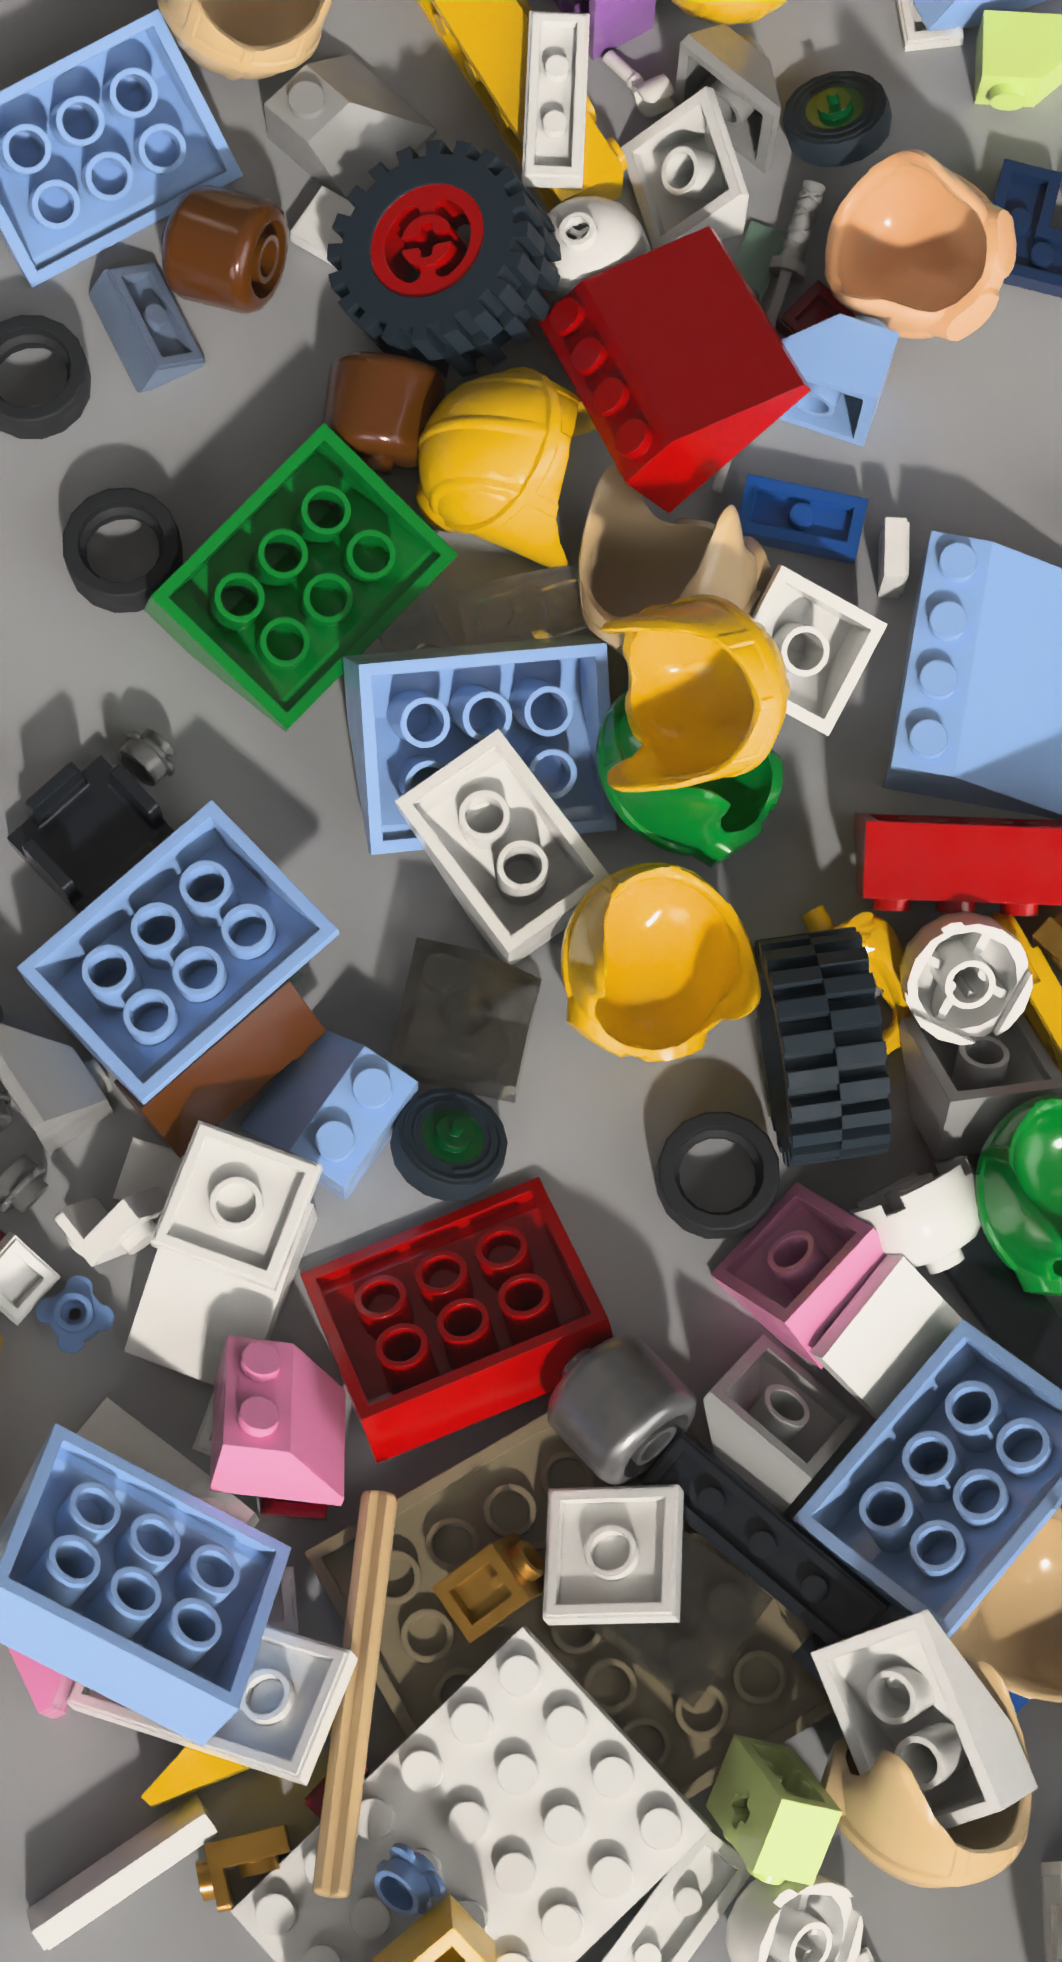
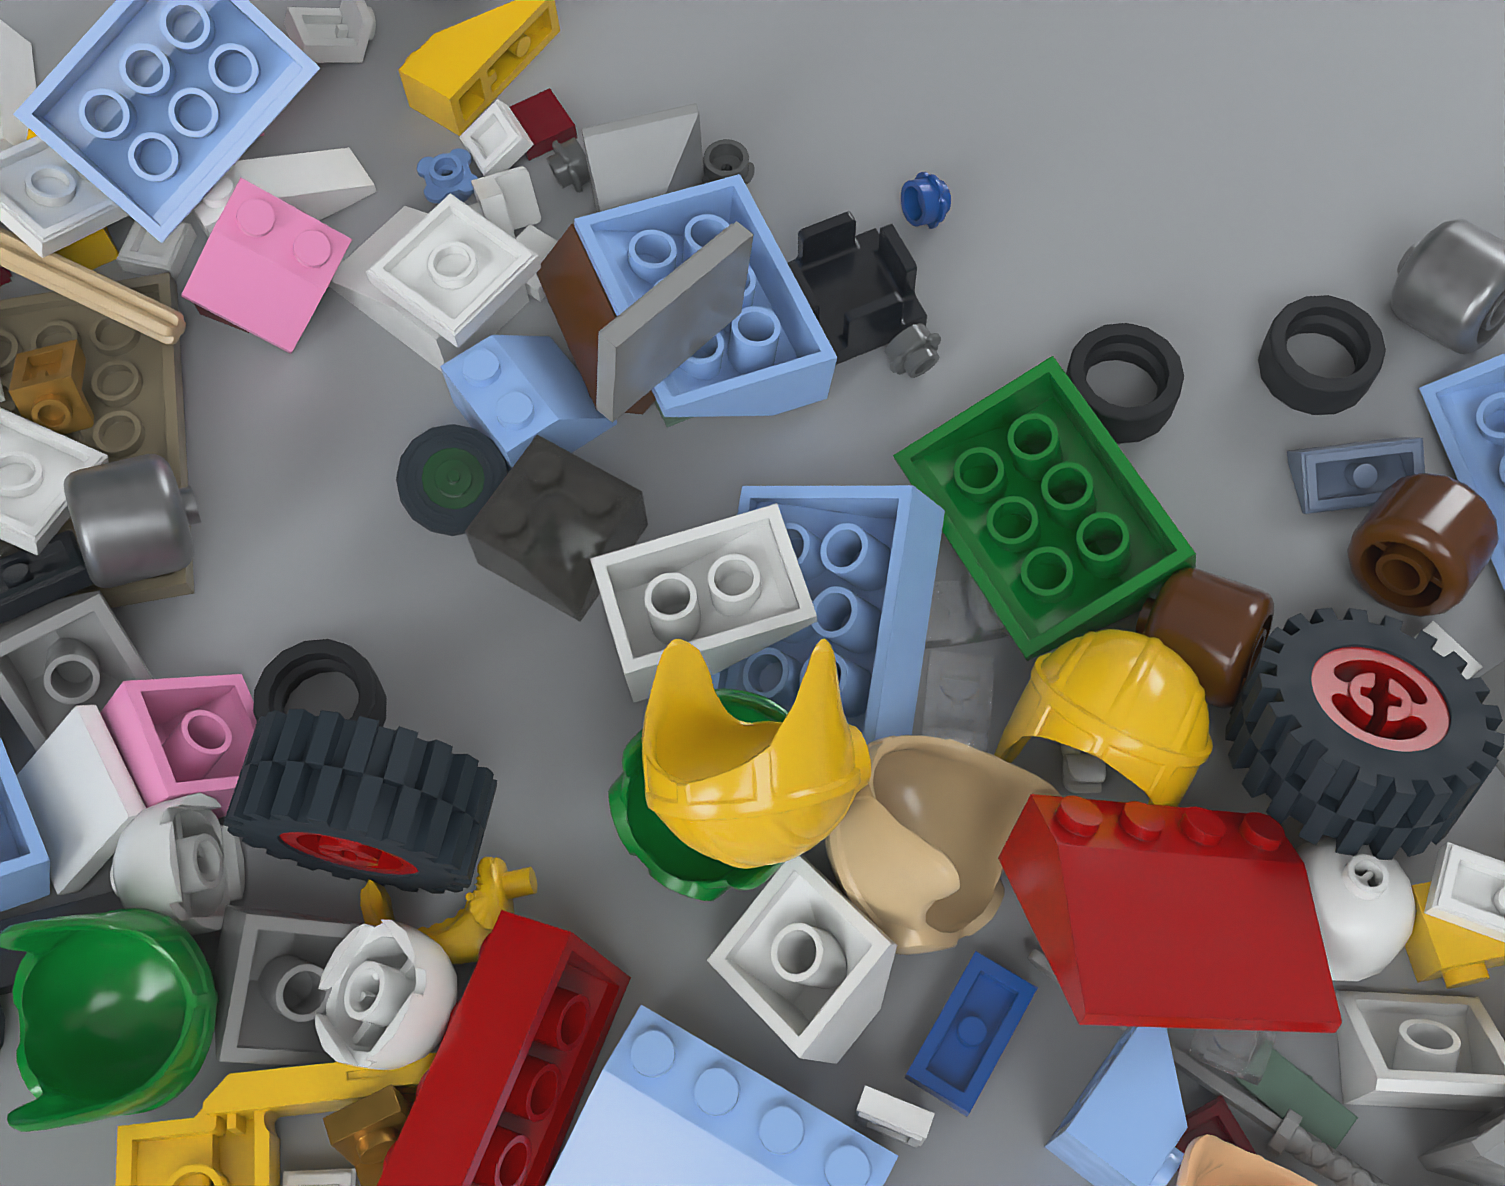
camera: 115 degrees right, 10 degrees down
(269, 923) = (672, 321): none -> light grey tile
(456, 1317) = (299, 446): red slope -> none
(656, 963) = (528, 686): yellow piece -> none

